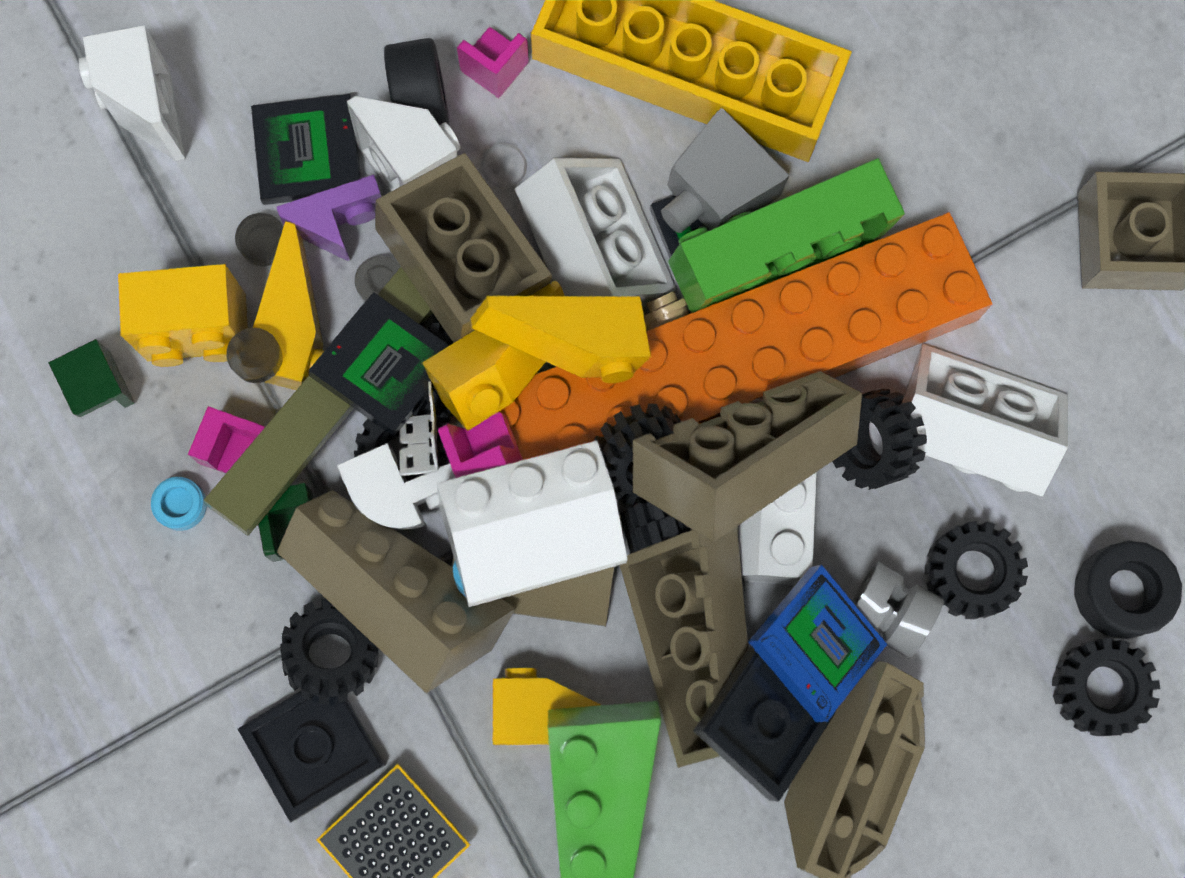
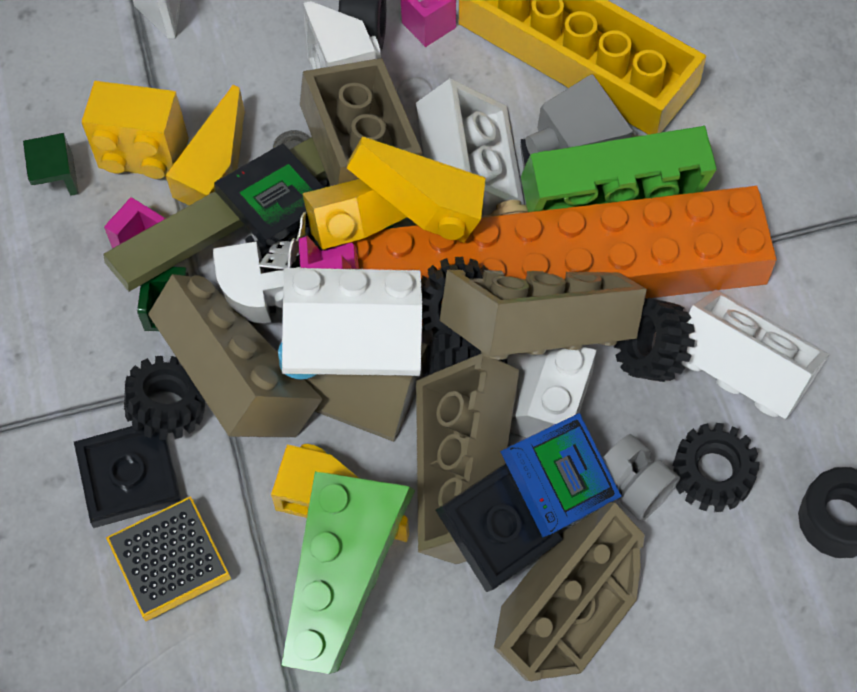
camera: 20 degrees right, 15 degrees down
(178, 503) = (86, 270): medium azure tile -> none
(254, 355) = (178, 167): clear smoke tile -> none
(258, 238) = (207, 97): clear smoke tile -> none
(304, 147) = (265, 49): tile -> none
(322, 213) = (269, 89): medium lavender slope -> none
(1137, 687) = (820, 564): black tyre -> none

